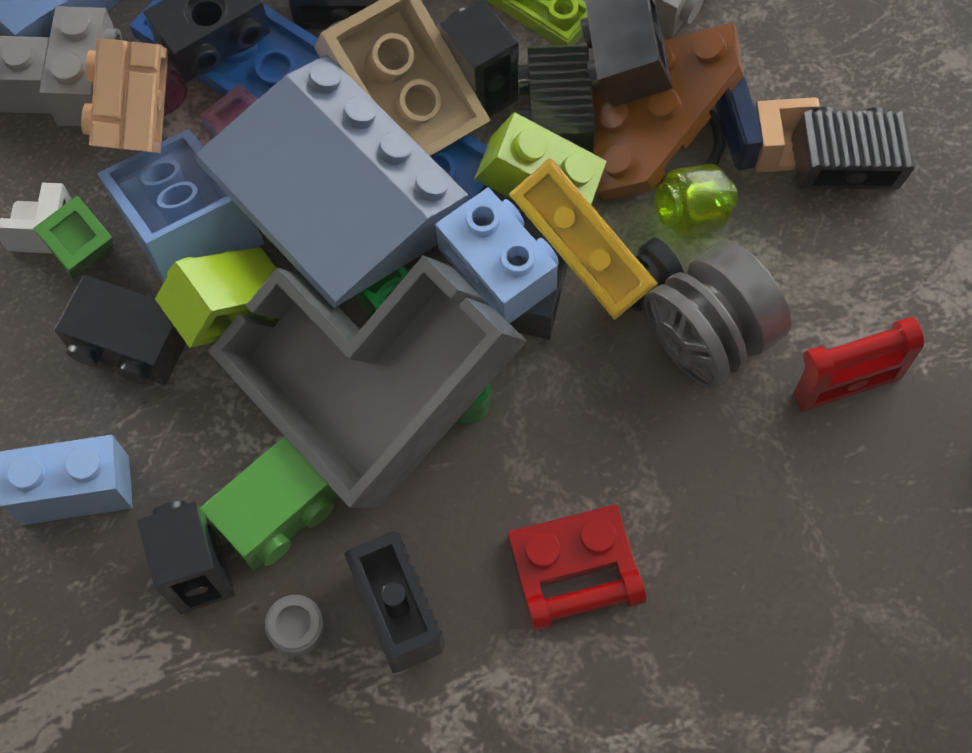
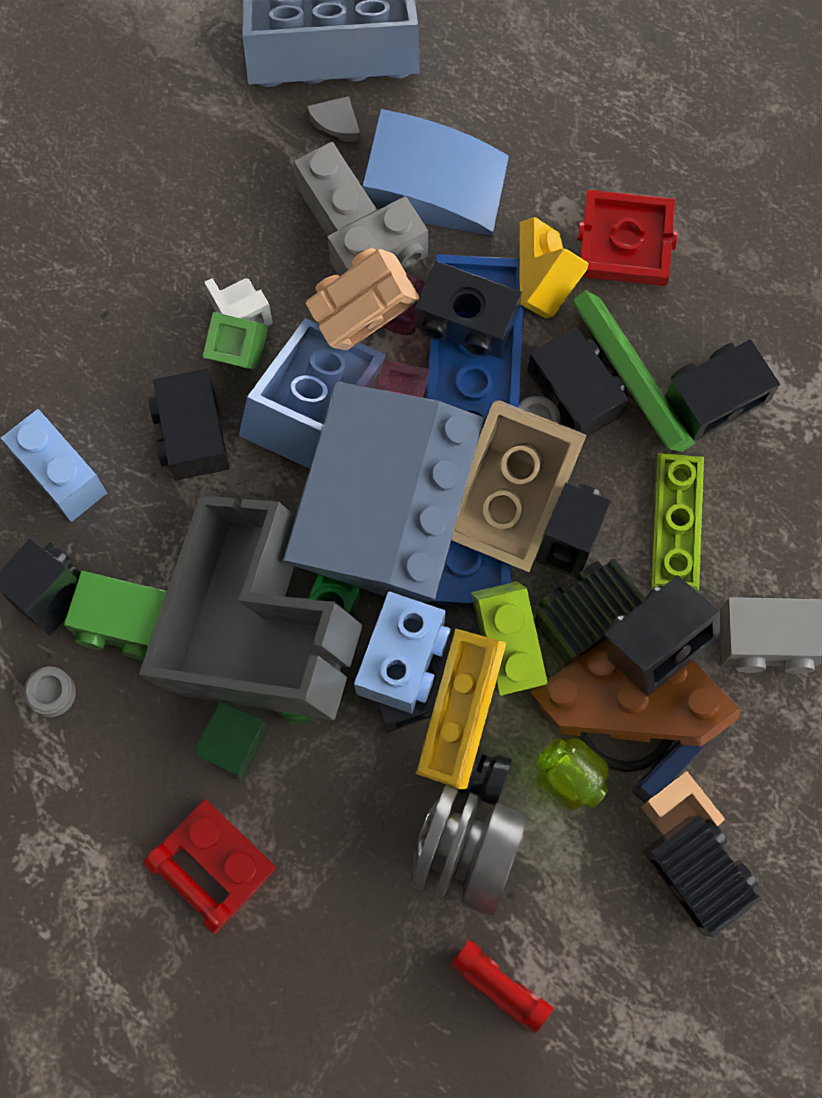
camera: 55 degrees right, 5 degrees up
(210, 292) = (245, 468): lime brick -> none
(395, 601) = (96, 751): black brick -> none
(468, 467) = (232, 740): none -> dark green panel

